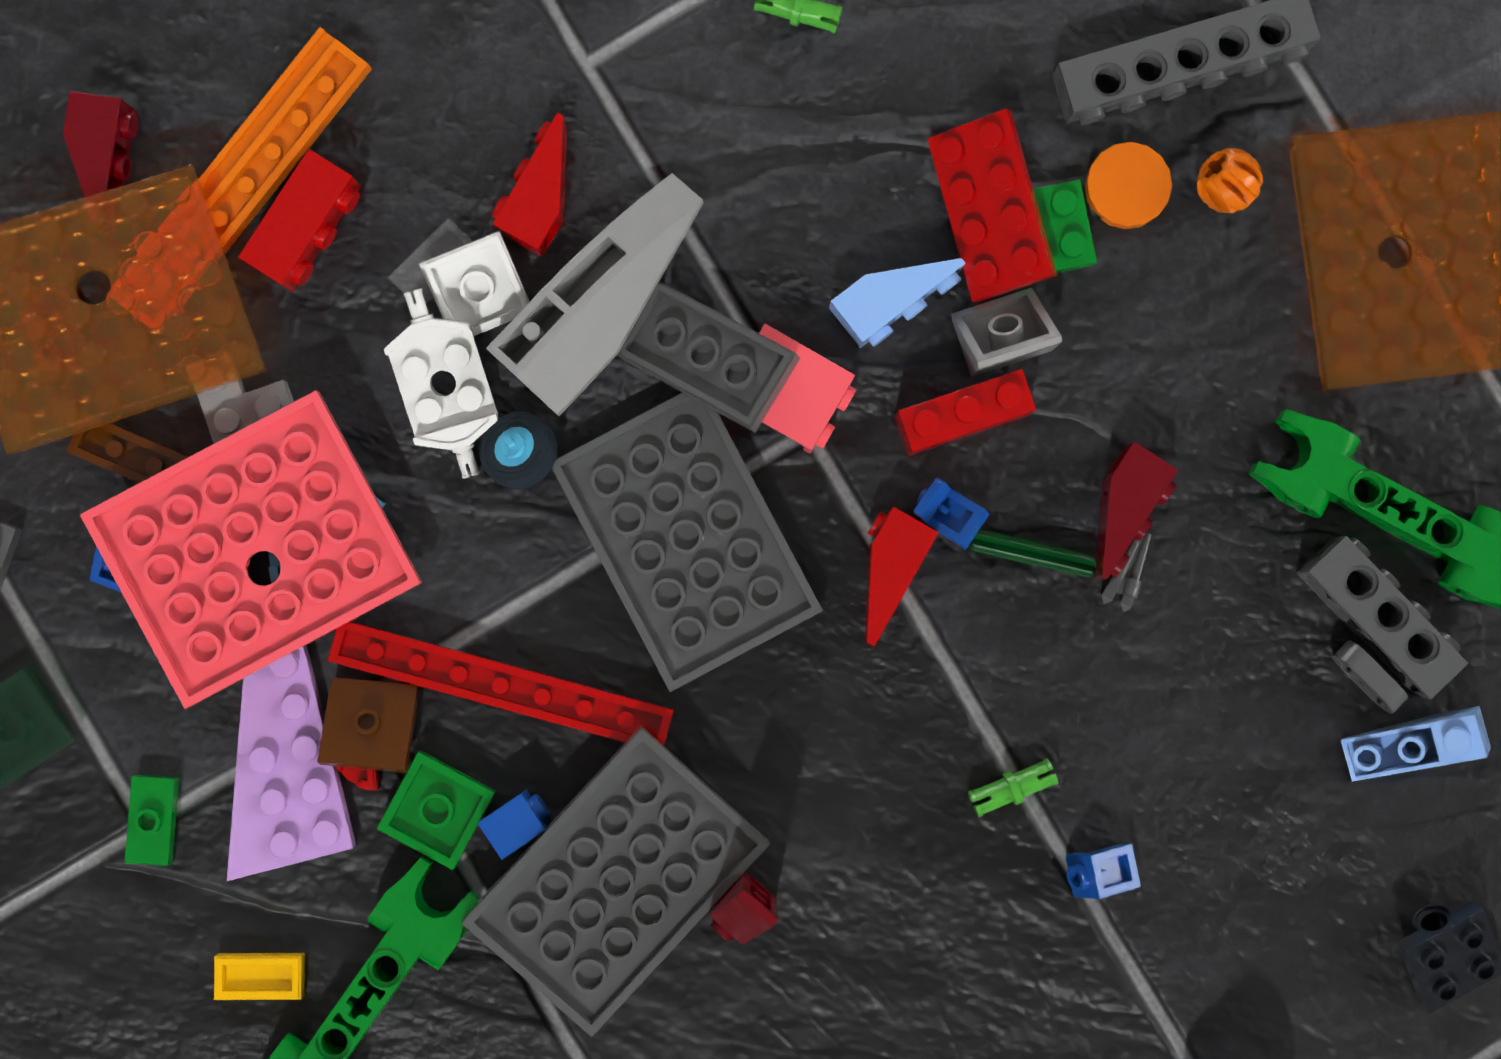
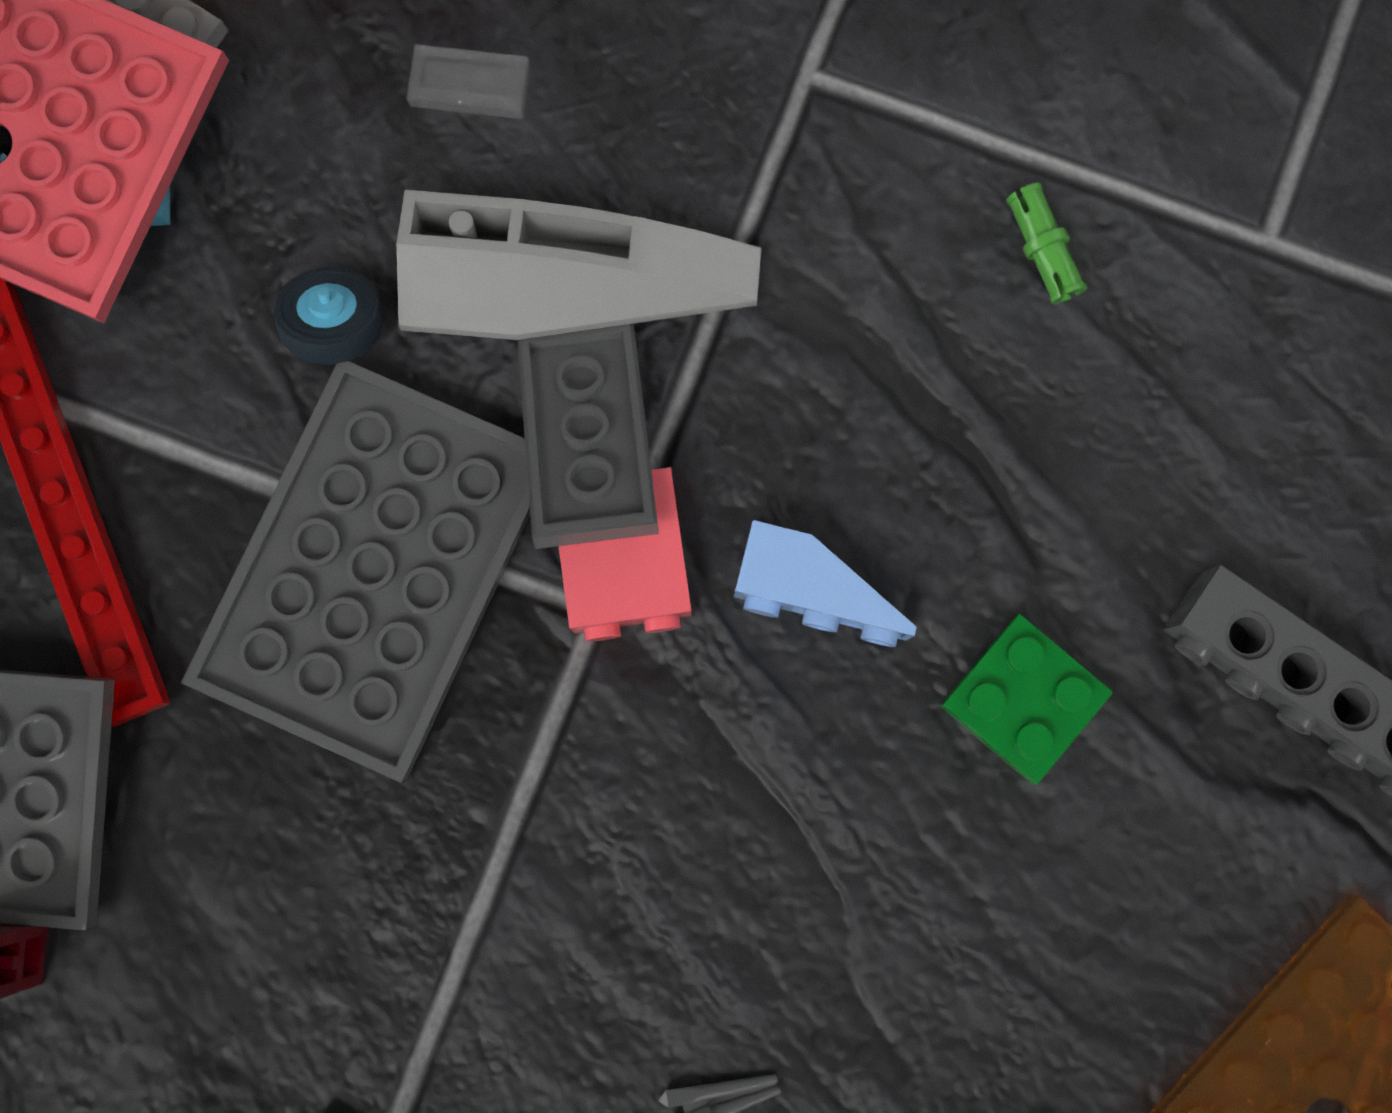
camera: 50 degrees right, 5 degrees down
(436, 418) = (347, 133): white plate -> none
(476, 284) = (473, 135): white plate -> none
(537, 201) = (621, 129): red slope -> none
(892, 563) = (516, 820): red slope -> none
(950, 513) = (622, 840): blue bracket -> none
(965, 412) = (749, 768): red brick -> none
(992, 206) = (1003, 618): red plate -> none
(1005, 331) = (877, 741): light grey slope -> none
(1034, 553) = (653, 972): dark green axle -> none
(1127, 498) = (802, 1033): dark red slope -> none
(1128, 185) = (1151, 752): orange tile -> none
(1229, 180) = (1251, 863): orange piece -> none

